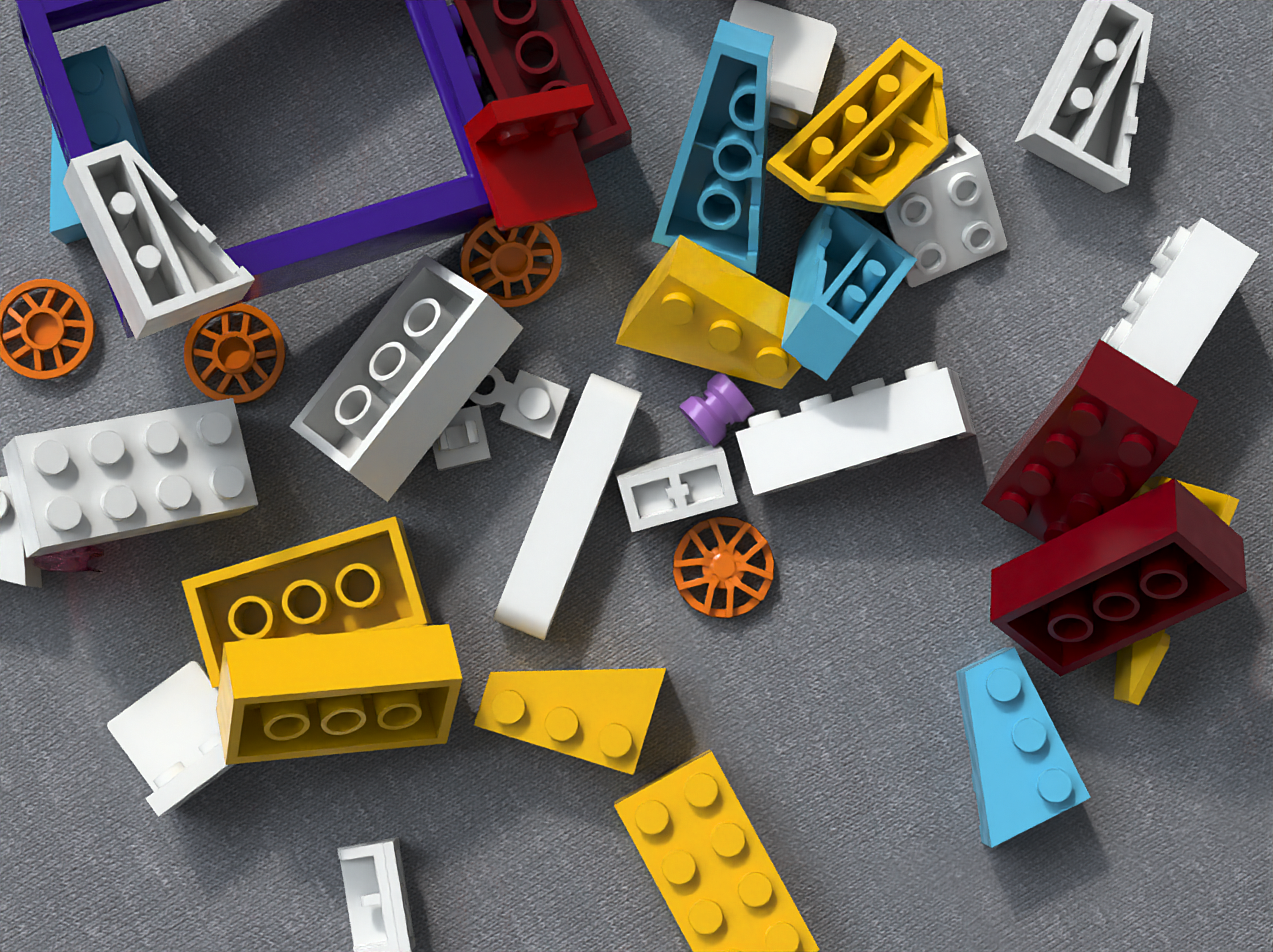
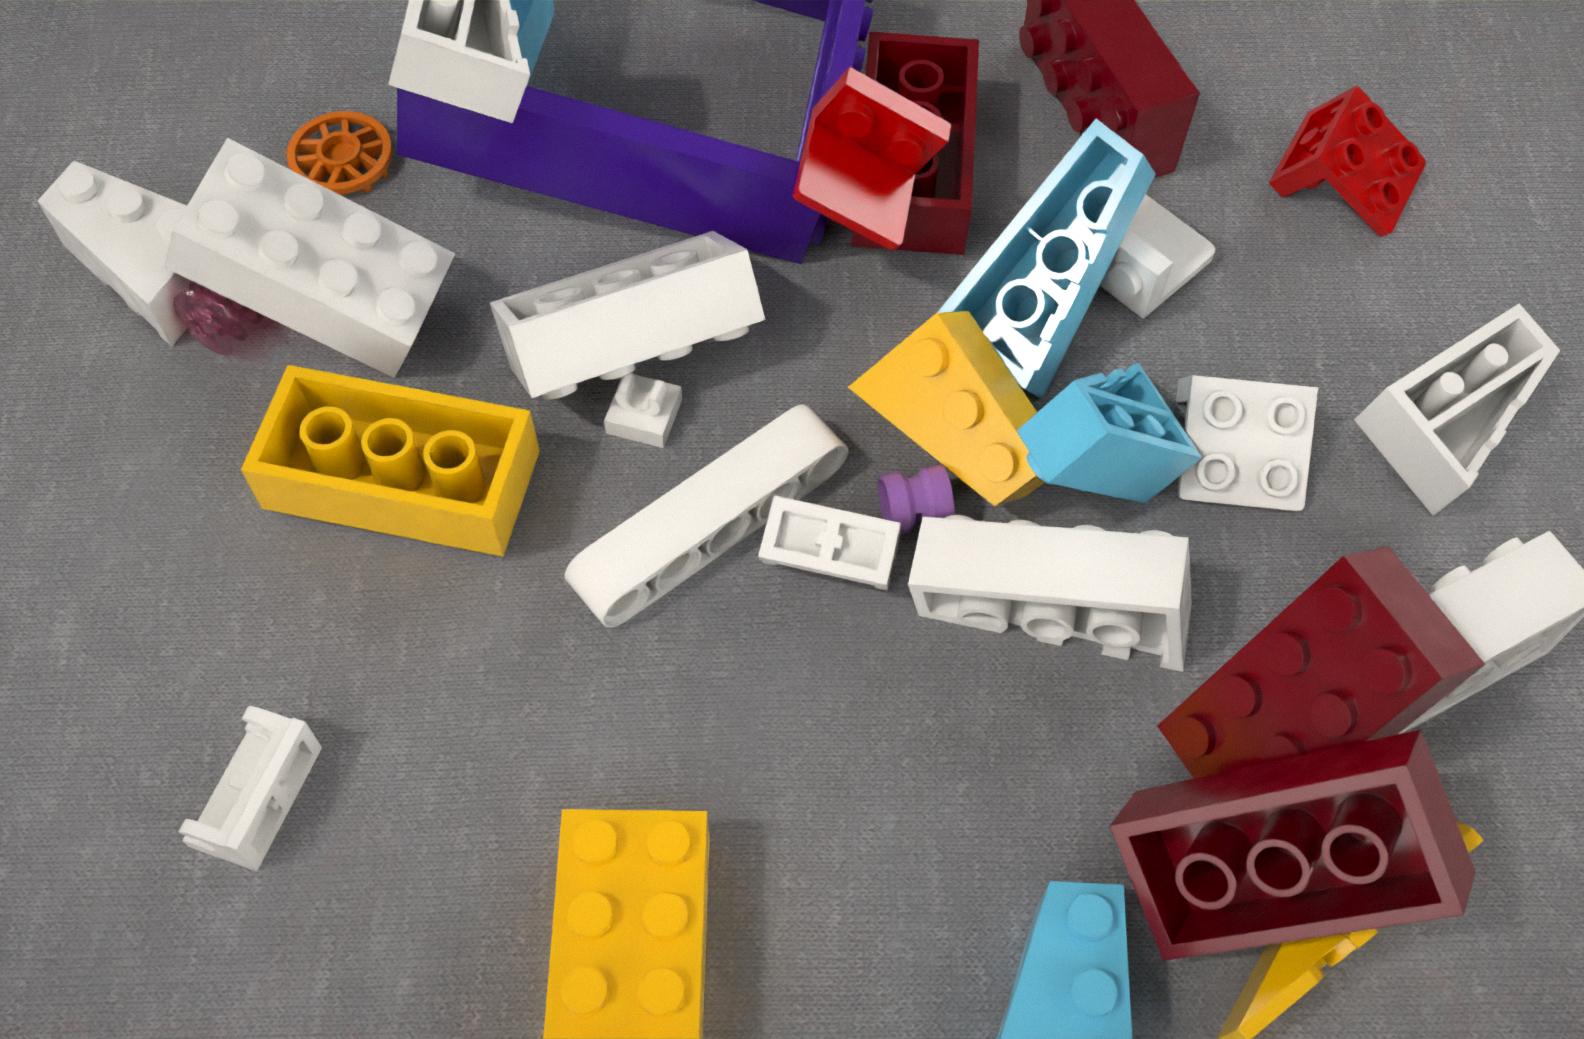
camera: 30 degrees right, 25 degrees down
(174, 737) = (181, 532): white bracket -> none
(235, 353) = (490, 246): orange wheel -> none
(337, 693) = (349, 527): yellow brick -> none
(511, 260) = (793, 276): orange wheel -> none
(529, 402) = (724, 411): white plate -> none
(575, 712) = (591, 705): yellow wedge -> none
(723, 567) = (835, 658): orange wheel -> none
(871, 135) = (1201, 320): yellow wedge -> none

